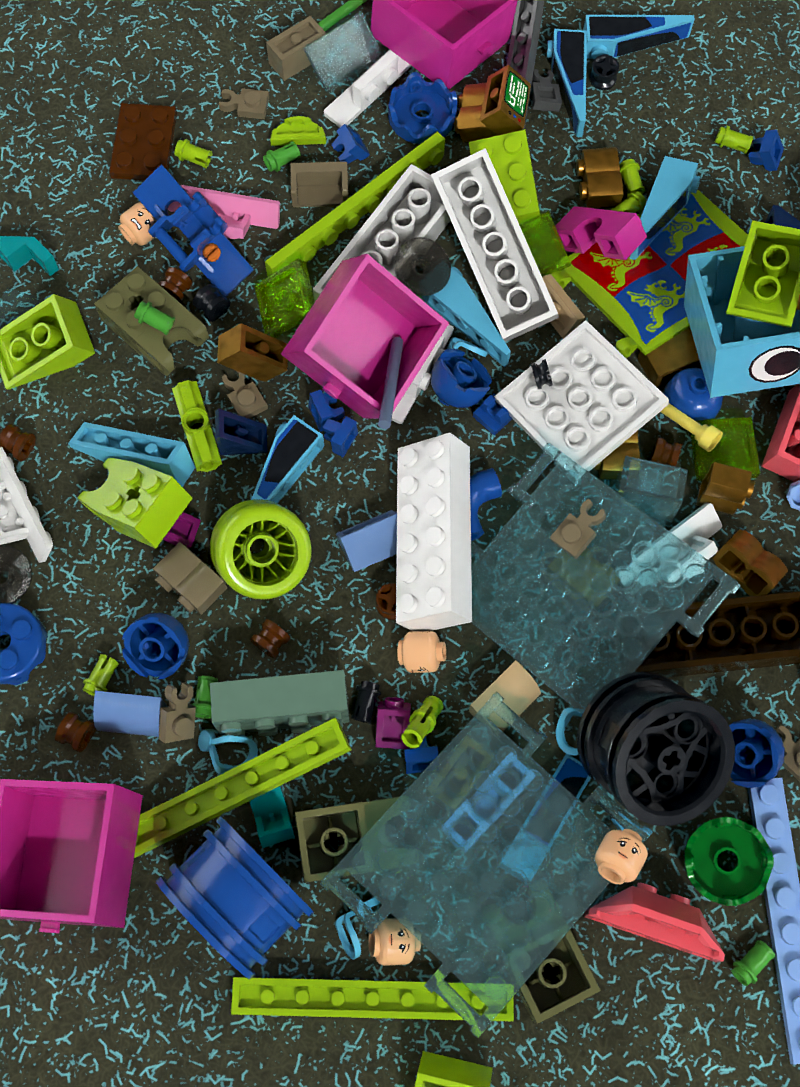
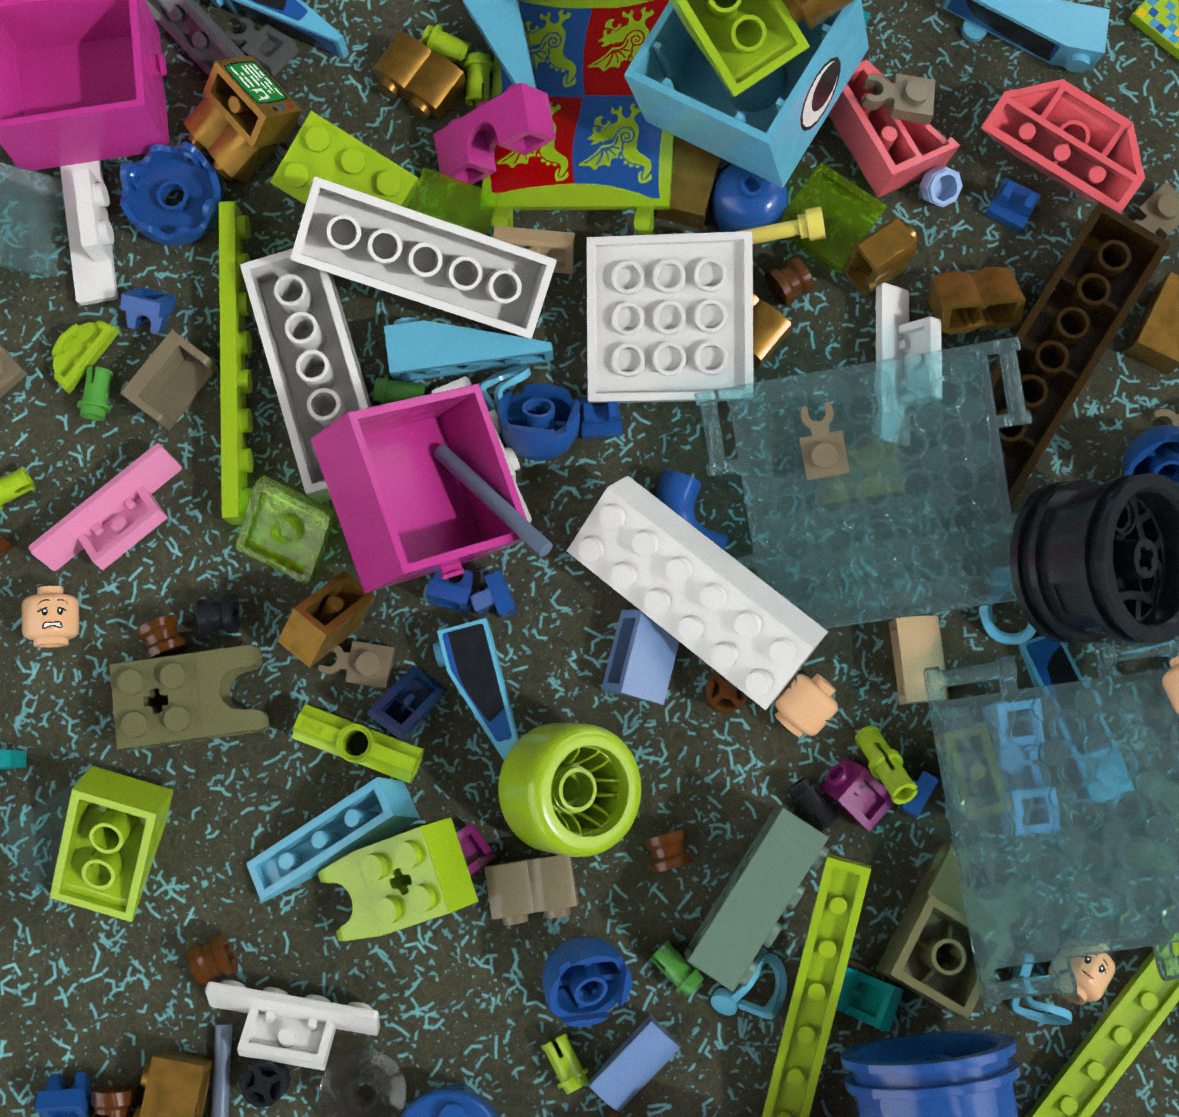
camera: 45 degrees left, 10 degrees up
(154, 317) = (197, 696): bright green pin -> none
(177, 719) = (682, 1013): dark tan plate -> none
(200, 224) = (114, 554): blue piece -> none
(432, 260) = (382, 338): clear smoke dish -> none
(541, 374) = (612, 335): black bush -> none
(652, 488) = (825, 332): clear light blue brick -> none

